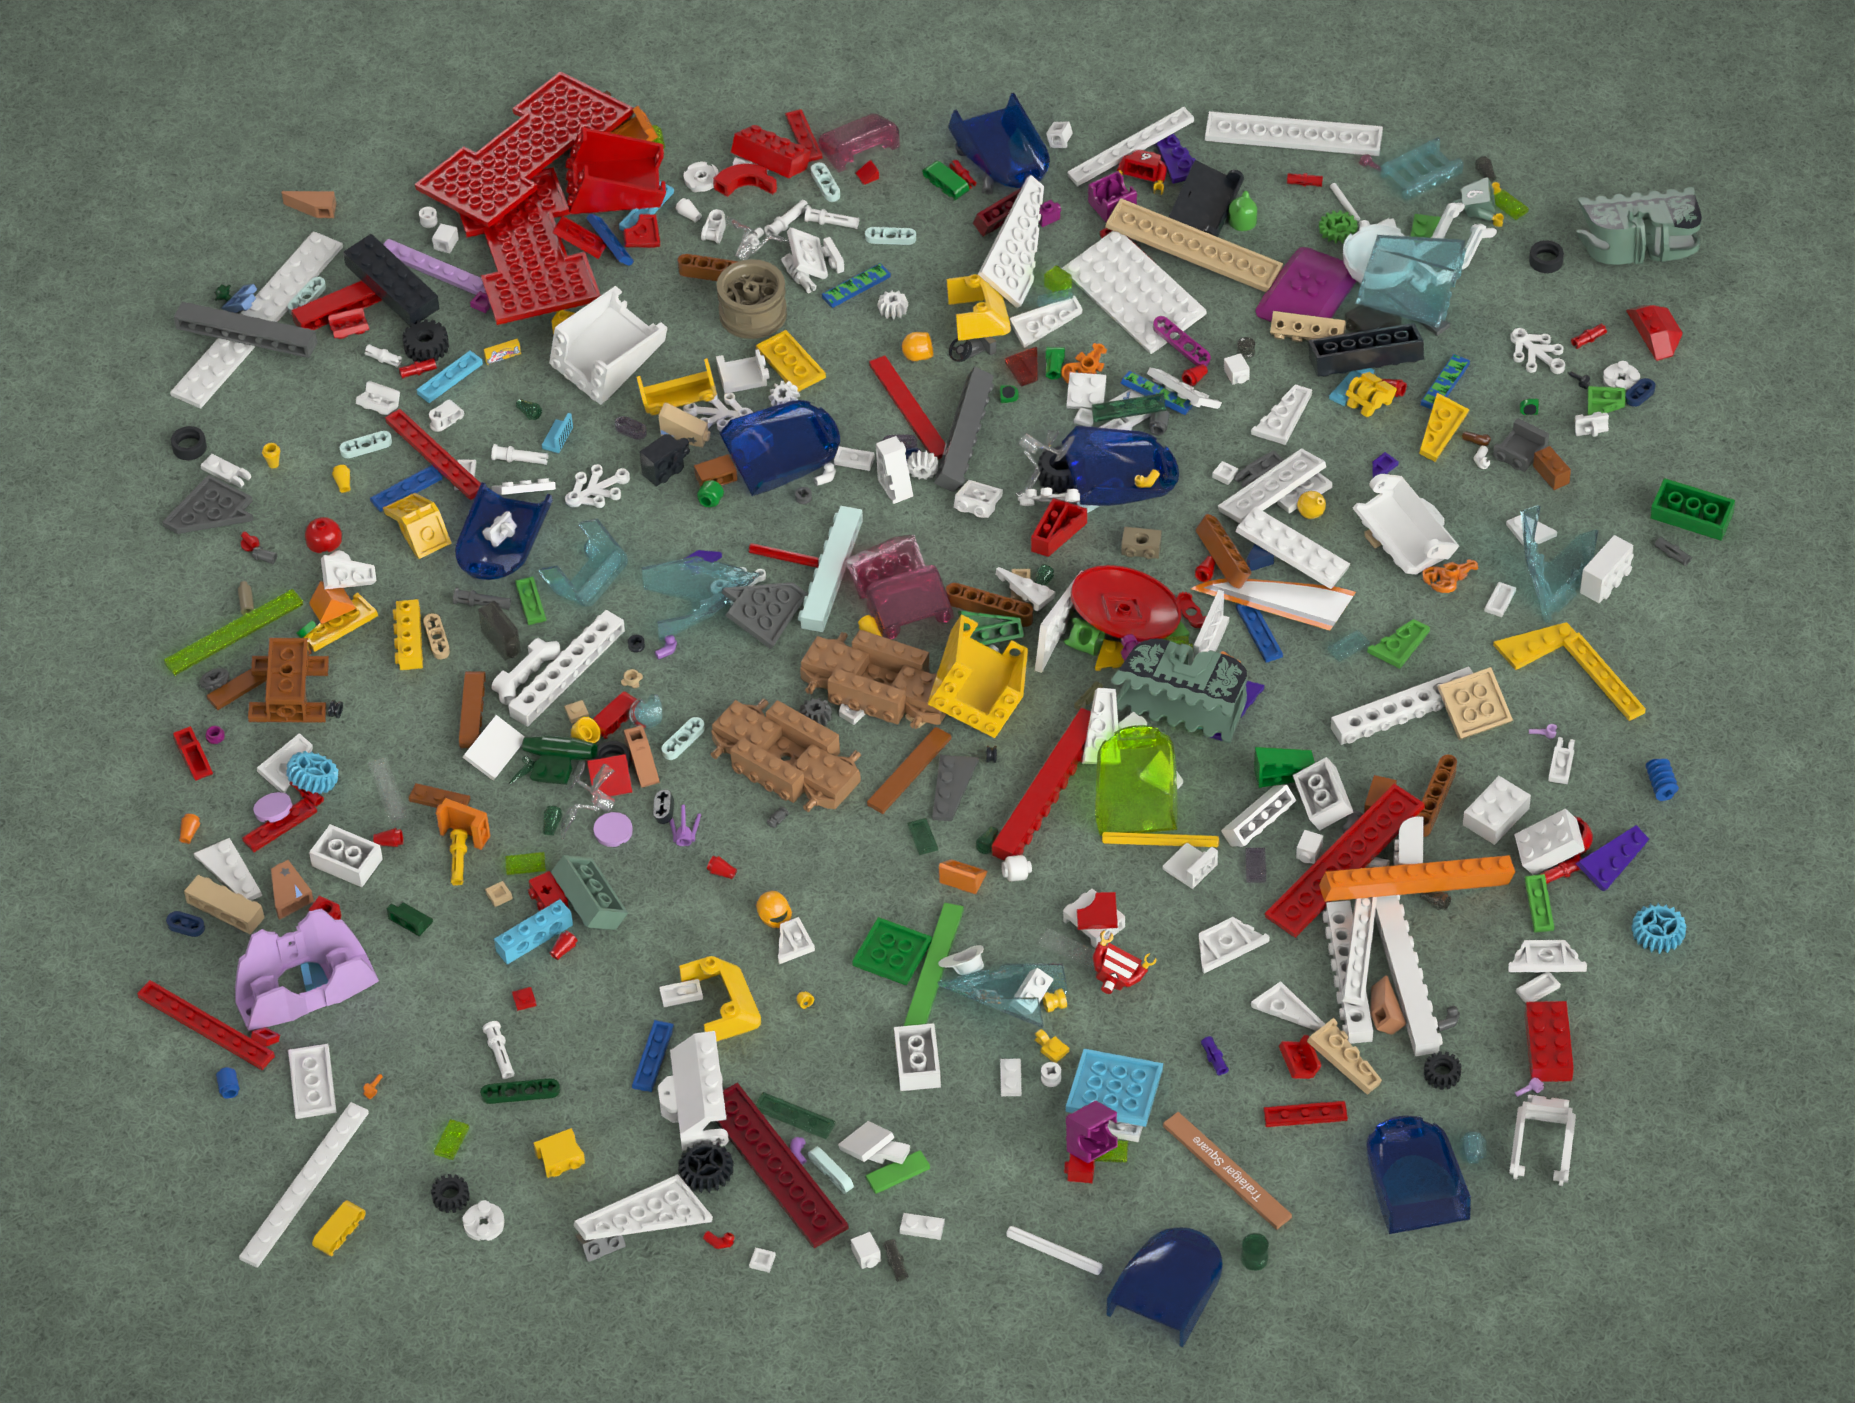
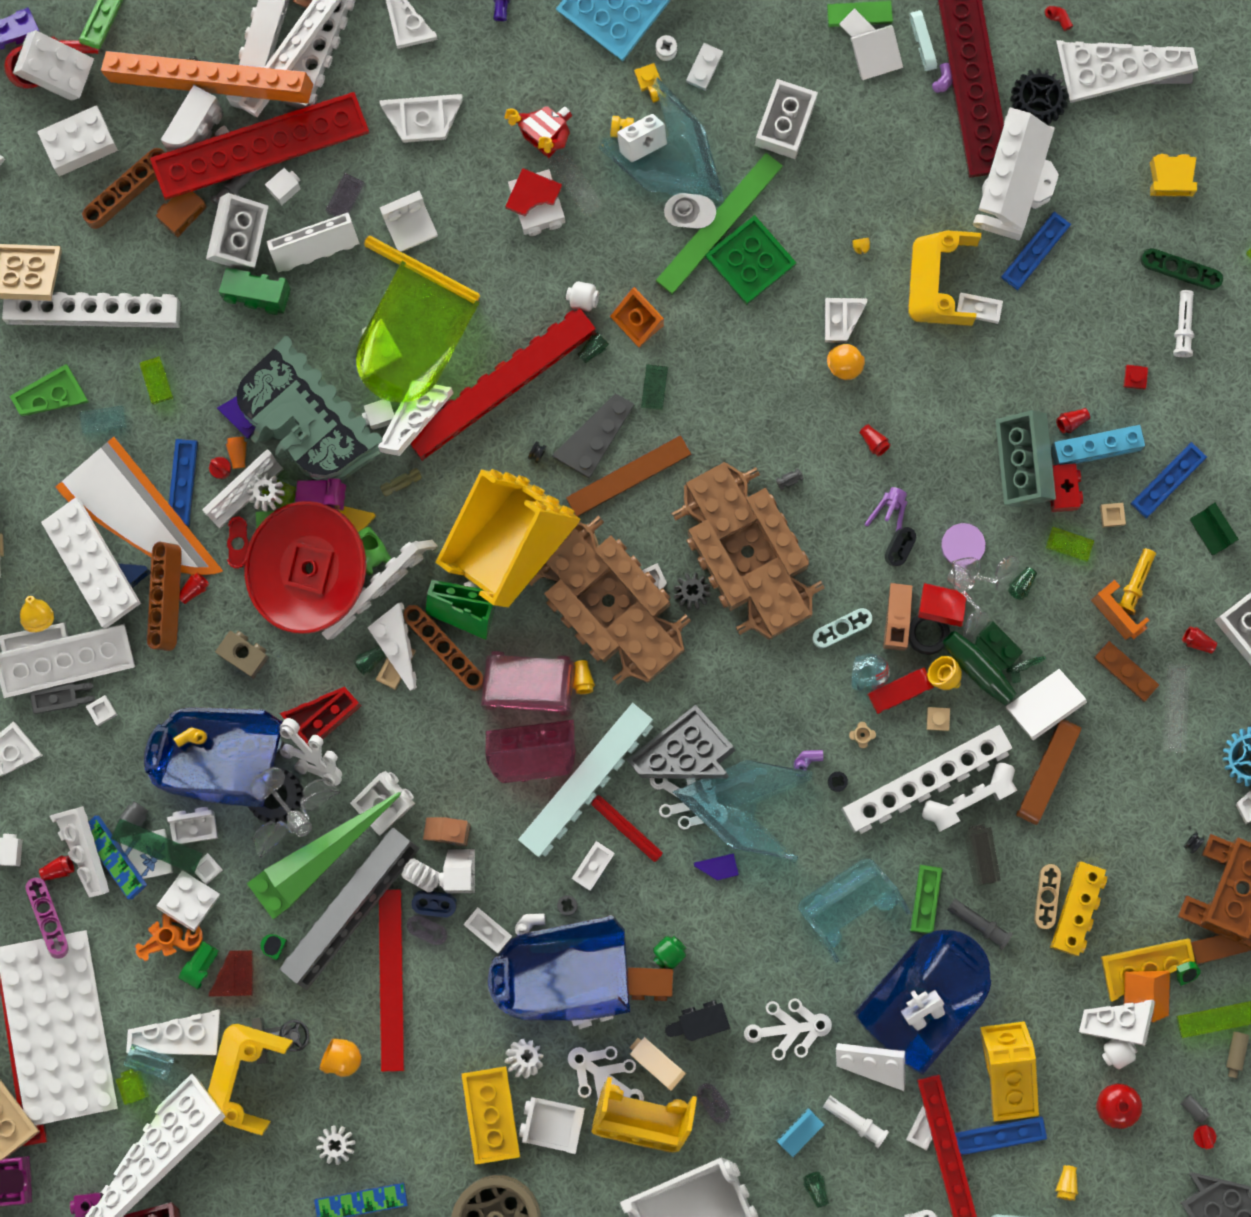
camera: 155 degrees left, 30 degrees up
(463, 938) = (1168, 480): none -> blue tile
(795, 1115) = (928, 120): clear green tile -> none
(797, 523) = (593, 866): none -> white plate
(916, 494) = (447, 831): none -> nougat slope
(1006, 444) = (291, 877): none -> bright green plate
(1185, 631) = (273, 488): none -> white gear
(1236, 650) = (220, 468): none -> red tile
(1323, 683) = (156, 380): none -> clear neon green plate

